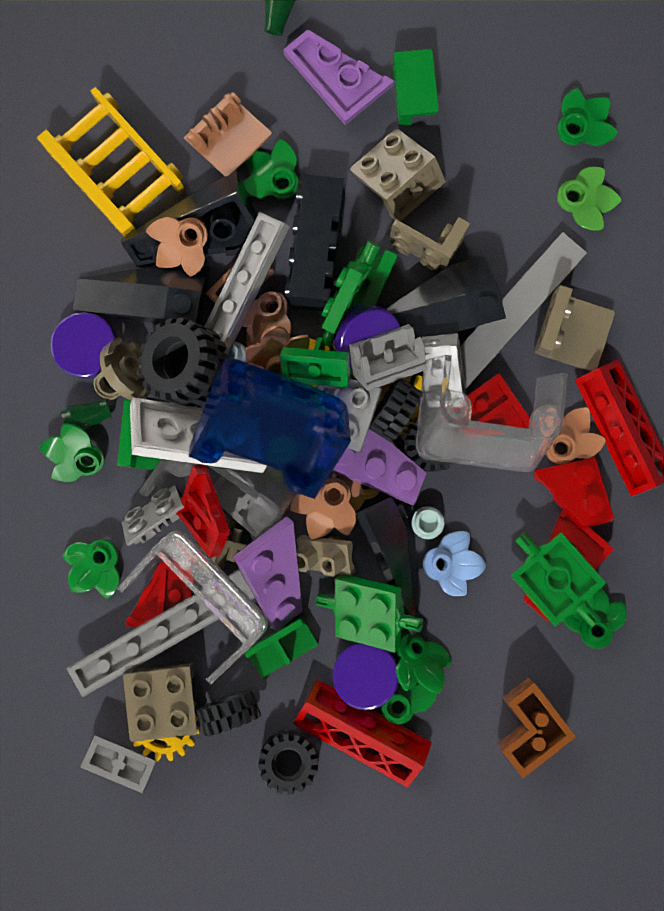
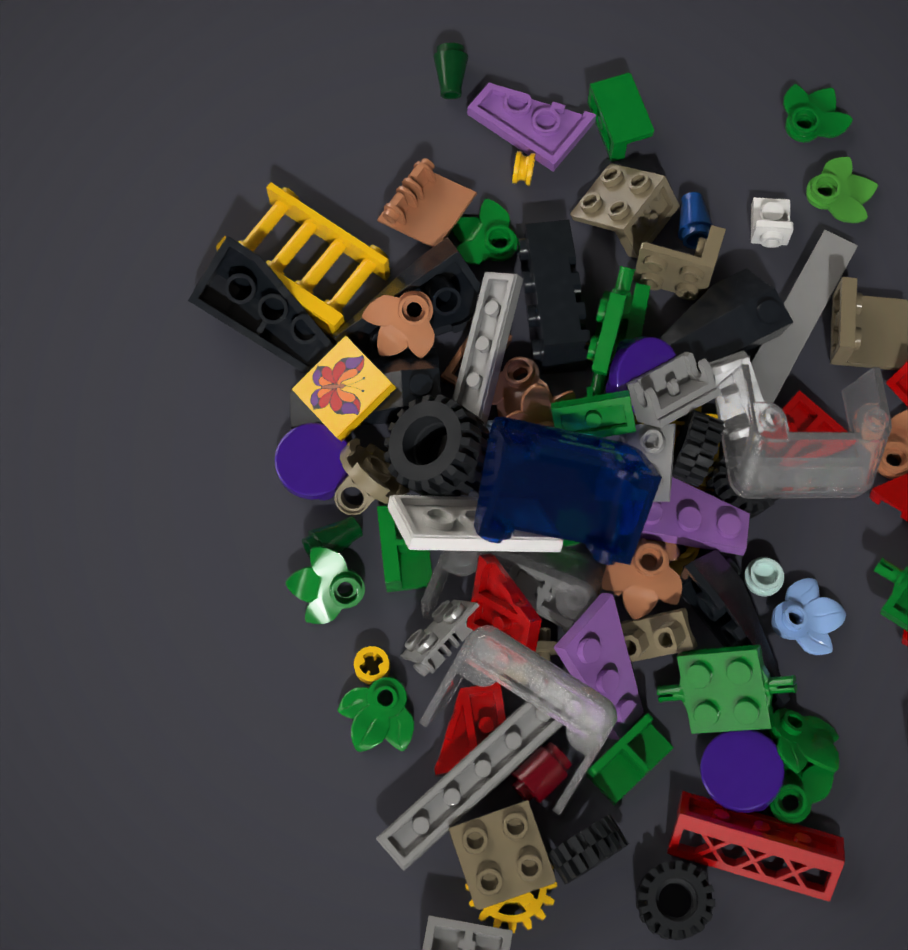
camera: 10 degrees left, 15 degrees down
(58, 197) = (256, 303): none -> black wedge
(88, 520) = (359, 663): none -> yellow bush
(119, 290) = (343, 388): none -> yellow tile
(208, 643) = (540, 773): none -> dark red brick
(319, 118) = (523, 168): none -> yellow bush
(453, 199) = (693, 220): none -> blue cone
(519, 214) = (770, 222): none -> white bracket

